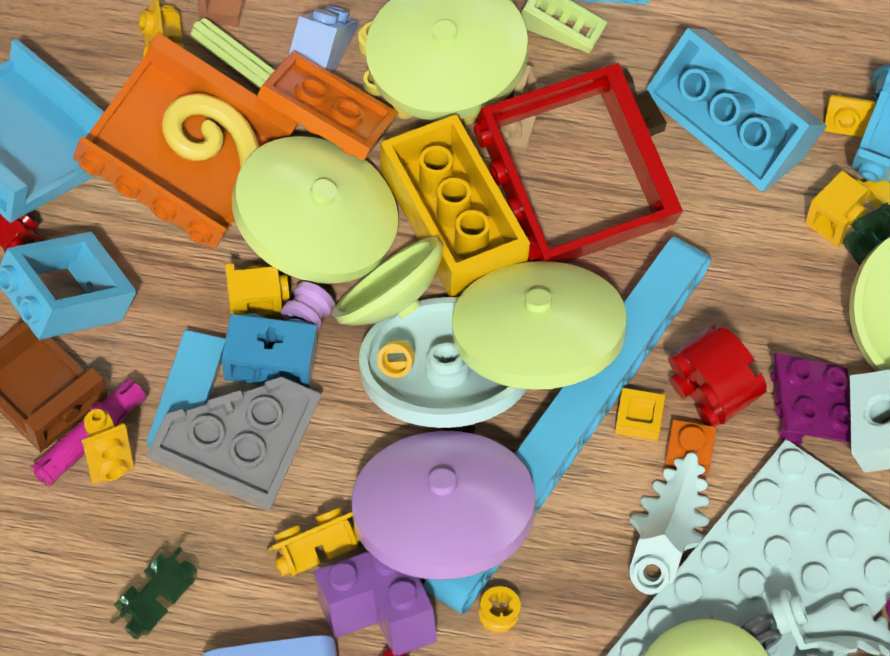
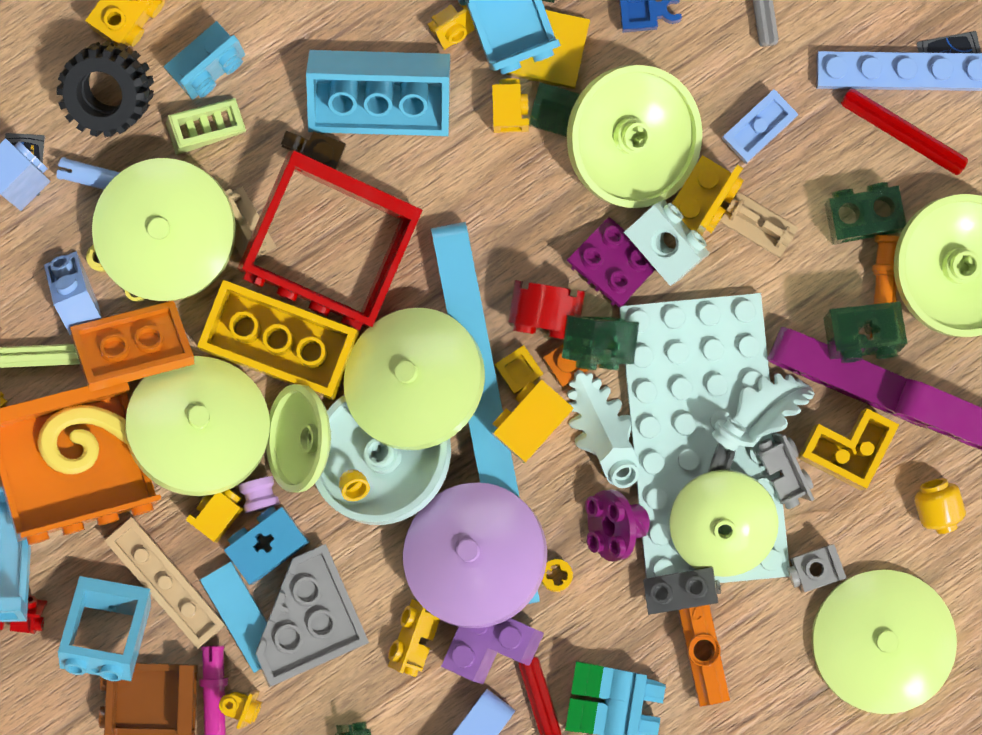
camera: 40 degrees left, 25 degrees up
(154, 307) = (165, 582): none -> tan plate
(600, 606) = (614, 524): none -> magenta plate
(613, 443) = (532, 420): none -> yellow brick
(741, 436) = (600, 341): none -> clear green brick

